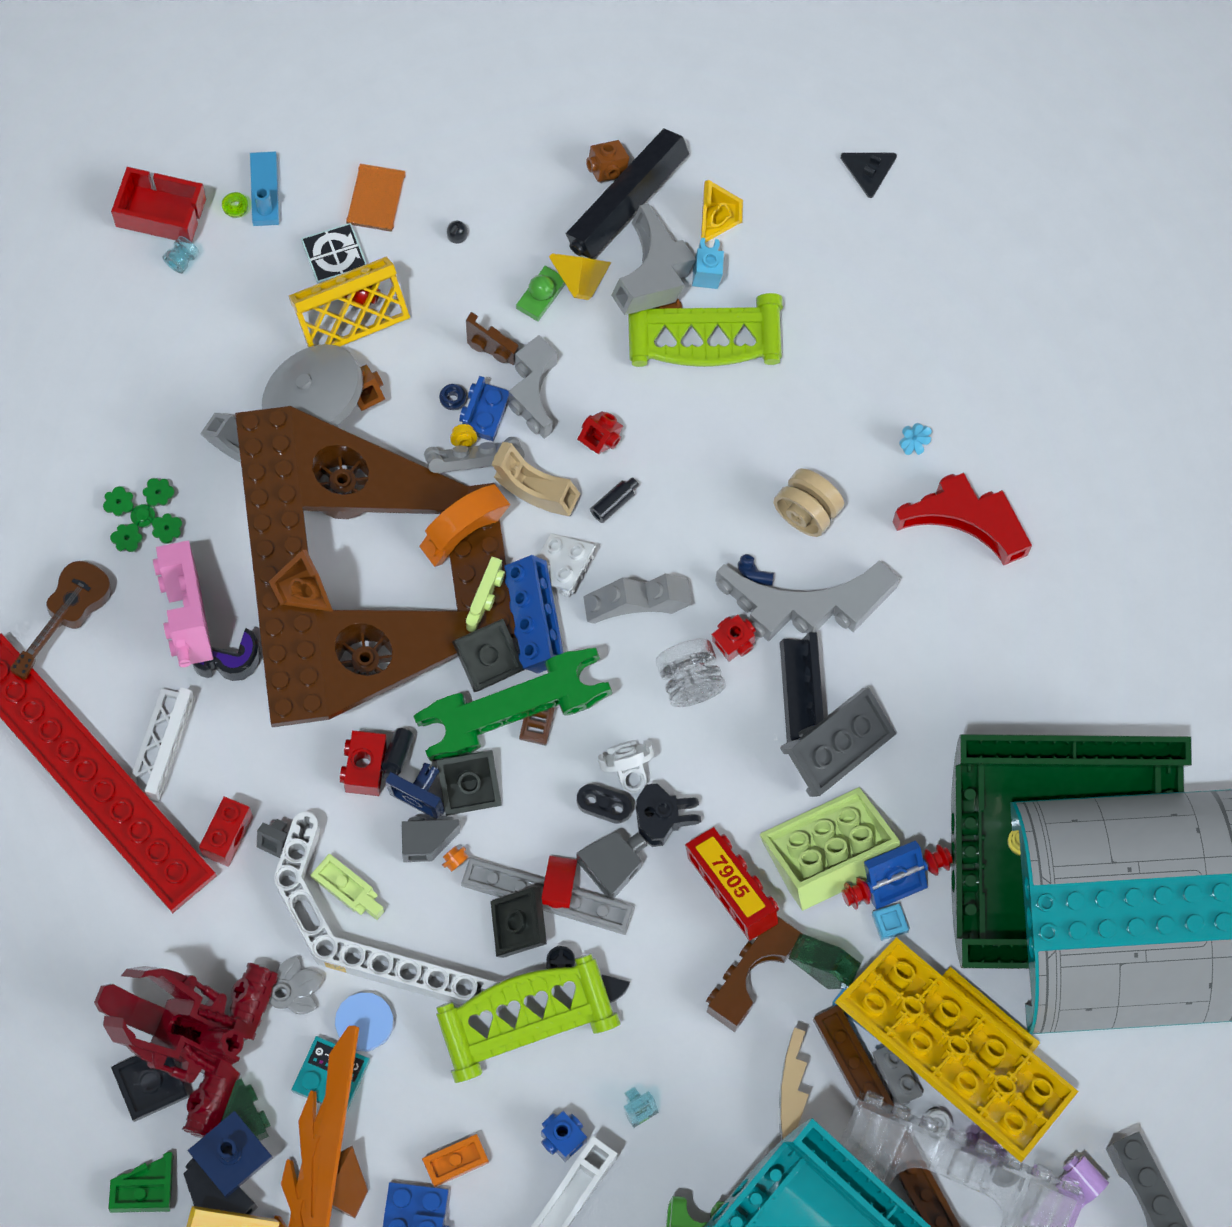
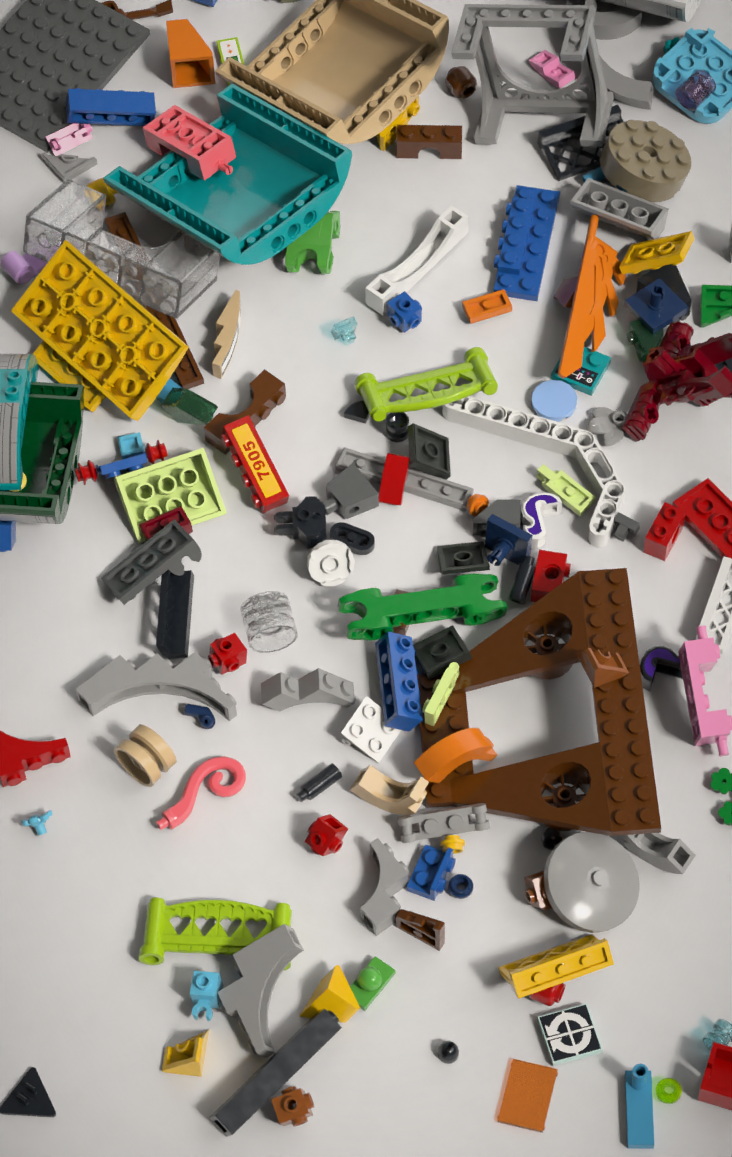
camera: 170 degrees left, 10 degrees down
(381, 861) = (531, 515): none -> white animal
(760, 460) = (182, 809): none -> coral plant
(830, 804) = (154, 525): none -> dark red slope

